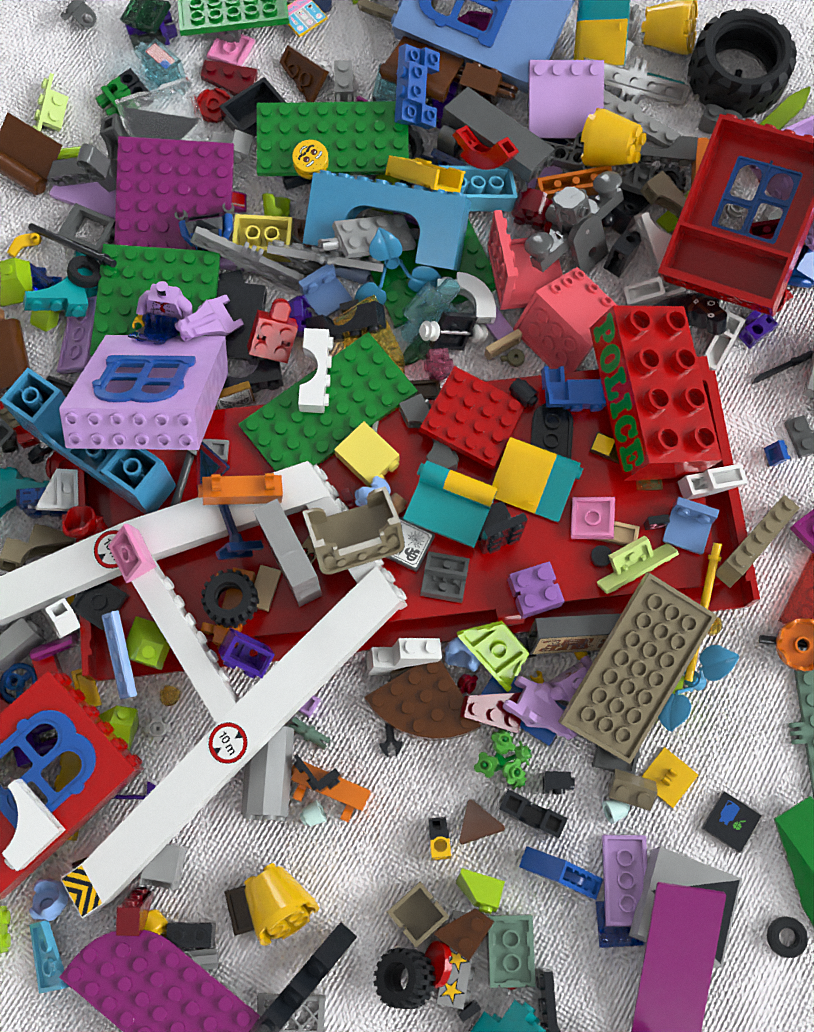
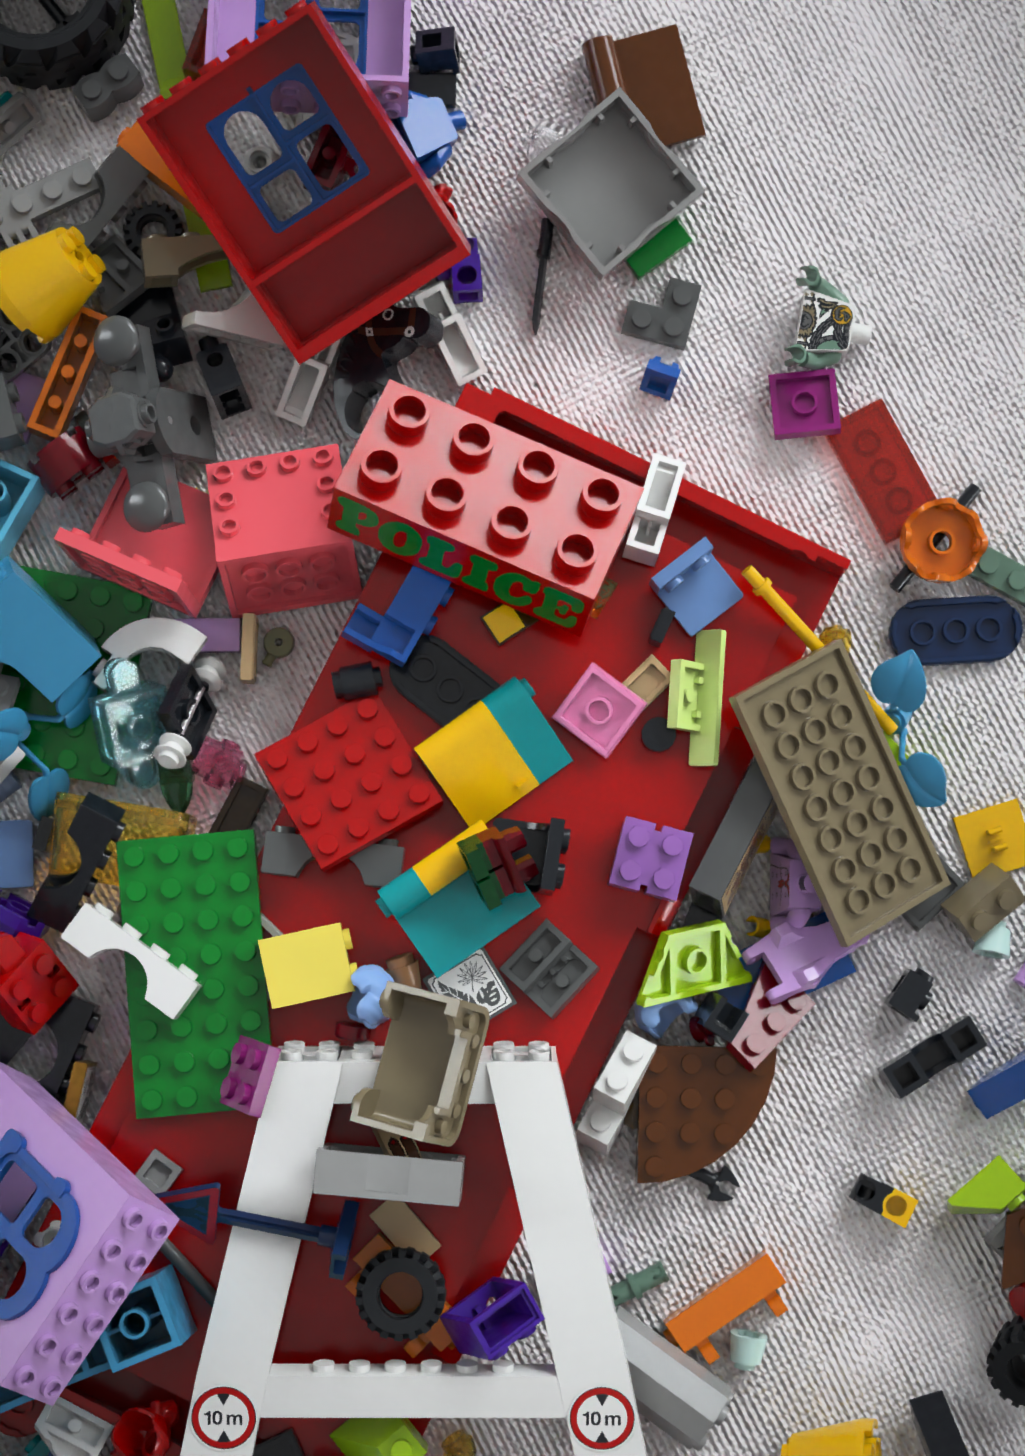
camera: 60 degrees left, 10 degrees up
(131, 553) = (252, 1395): bright pink slope -> none
(240, 489) = (261, 1186): orange brick -> none
(302, 454) = (249, 1076): none -> magenta plate
(328, 781) = (722, 1303): black bracket -> none
(418, 914) = (963, 1291): dark tan piece -> none
(478, 505) = (492, 864): none -> hips
(478, 683) = (721, 1016): none -> black window
(478, 823) = (898, 1135): reddish brown piece -> none
(511, 770) = (822, 1040): bright green plant -> none
(757, 541) = (782, 537): dark tan arch -> none
(763, 686) = (956, 630): none -> dark blue tile

